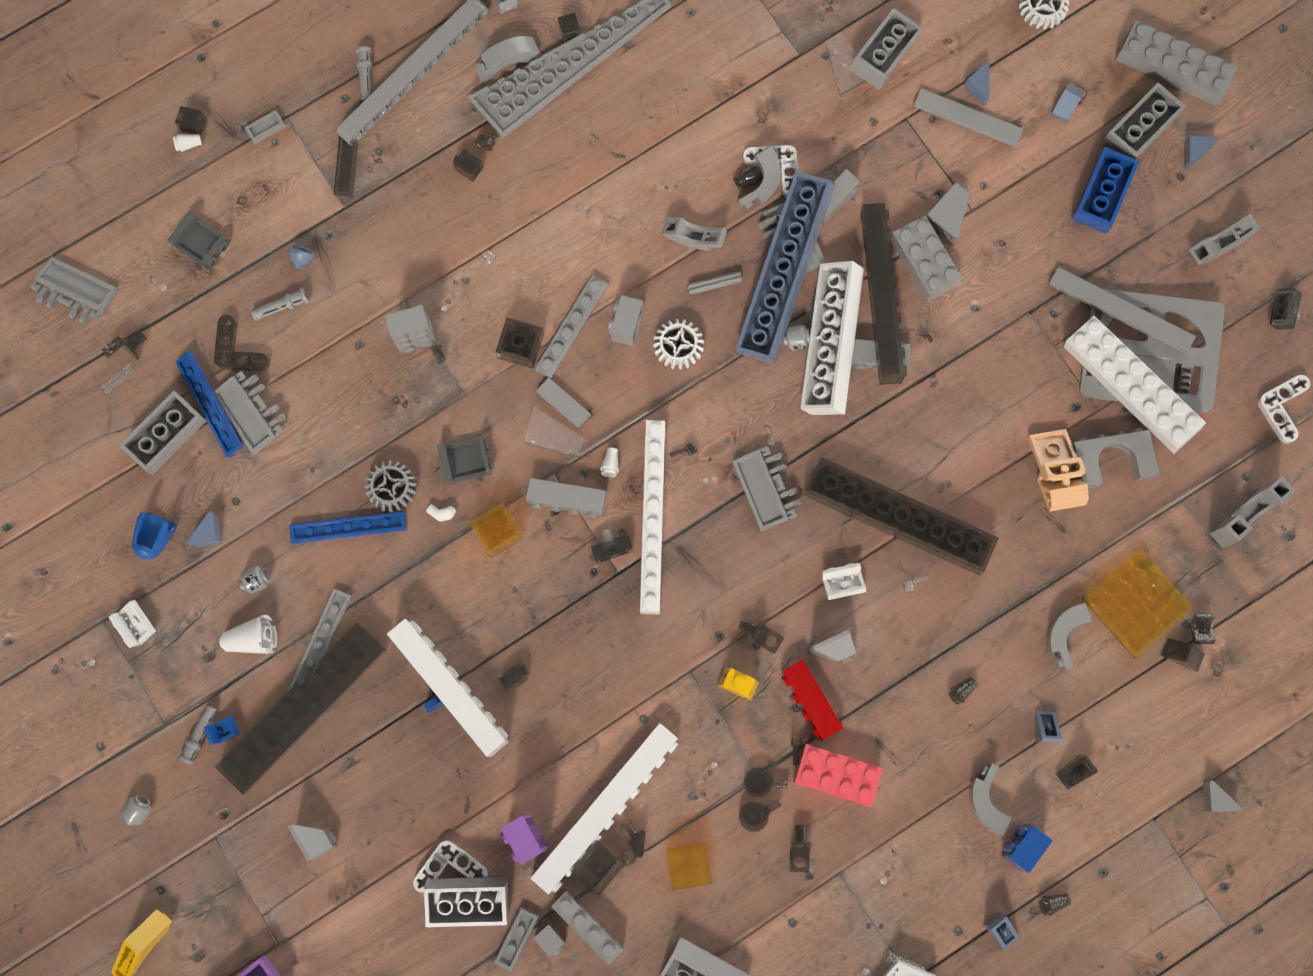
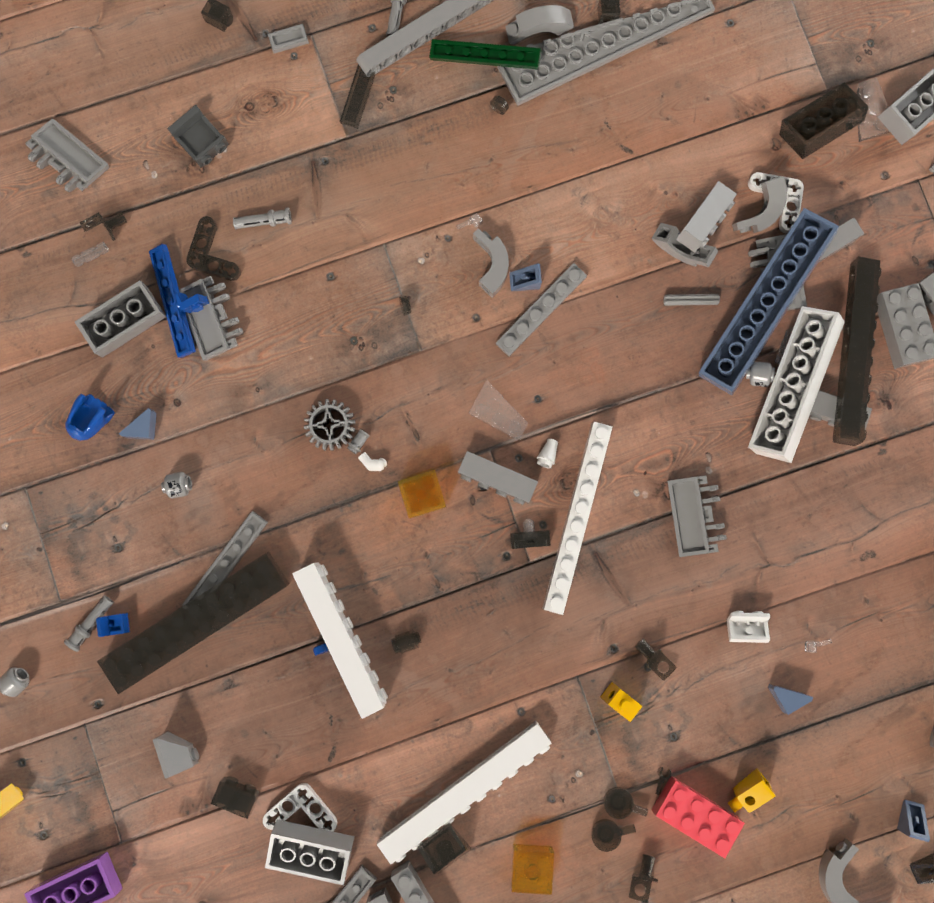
camera: 10 degrees right, 5 degrees up
(132, 624) = (50, 500): white bracket -> none
(186, 141) = (208, 35): white cone -> none
(229, 402) = (190, 304): none -> blue bracket
(251, 637) = (162, 541): white cone -> none
(300, 256) = (293, 175): sand blue brick -> none
(347, 527) = (279, 455): blue tile -> none
(381, 869) = (235, 797): none -> clear smoke brick
(410, 329) = (384, 274): light grey brick -> none
(422, 496) = (358, 441): none -> light grey pin
(459, 97) = (485, 54): none -> dark green plate
(465, 460) = (407, 416): dark grey panel -> none
(468, 165) = (477, 123): clear smoke brick -> none
(519, 343) = (487, 313): clear smoke brick -> none
(521, 300) = (497, 274): none -> light grey arch
(523, 839) = (379, 811): medium lavender brick -> none
(549, 301) = (526, 278): none -> sand blue slope
(563, 403) = (515, 383): light grey tile -> none
(626, 320) = (599, 314): light grey brick -> none
(636, 843) = (486, 832): clear smoke piece -> none
(672, 341) = (634, 348): white gear -> none
(689, 448) = (628, 458): clear smoke hand -> none
(708, 201) = (707, 215): none -> light grey brick
(747, 176) = (749, 201): clear smoke cone -> none
(798, 84) = (823, 120): none -> clear smoke brick
(812, 700) = (690, 736): red brick -> none
(836, 648) = (727, 691): light grey slope -> none
(886, 731) = (751, 792): none -> yellow torso
(898, 640) = (788, 699): none -> sand blue slope
(901, 516) = (821, 577): clear smoke brick -> none
(962, 690) = (838, 763): clear smoke cone -> none

